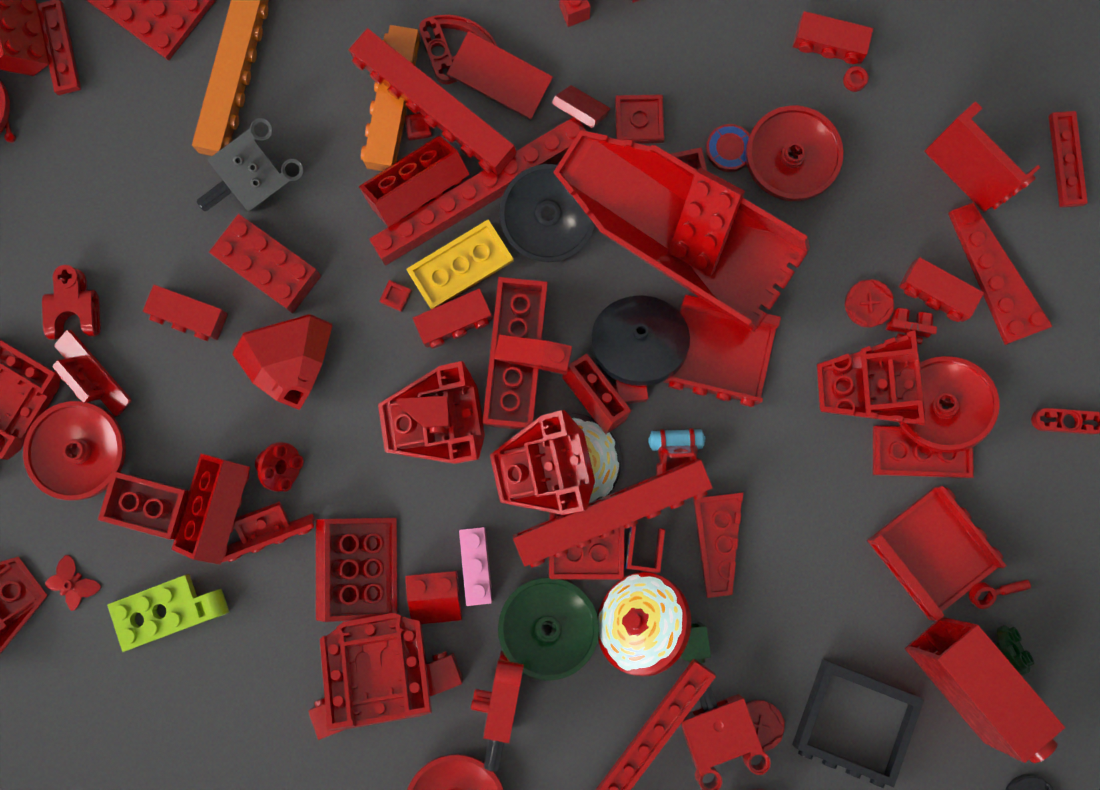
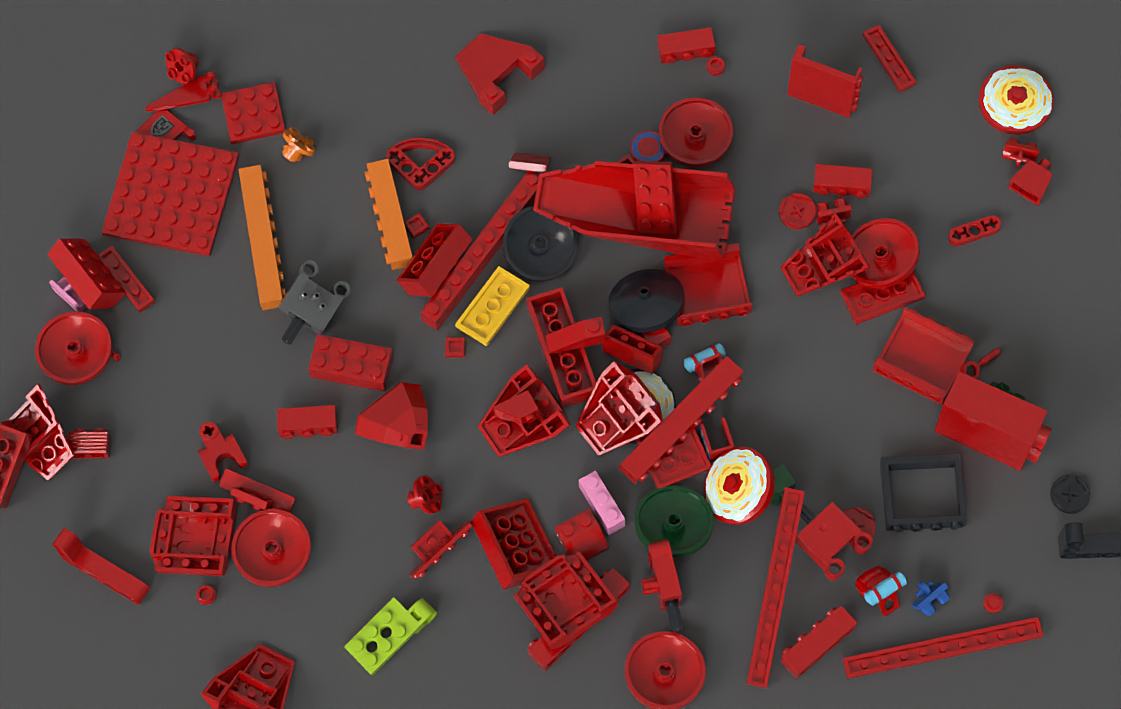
camera: 20 degrees left, 15 degrees down
(69, 584) = (309, 648): red piece -> none
(143, 505) = (342, 562): red brick -> none
(211, 509) = (392, 542): red brick -> none
(432, 101) = (424, 200): red brick -> none
(453, 319) = (505, 344): red brick -> none
(499, 75) = (461, 166): red tile -> none
(639, 118) = (573, 152): red tile -> none
(718, 539) = (763, 407): red wing -> none
(1004, 290) = (889, 164): red wing -> none

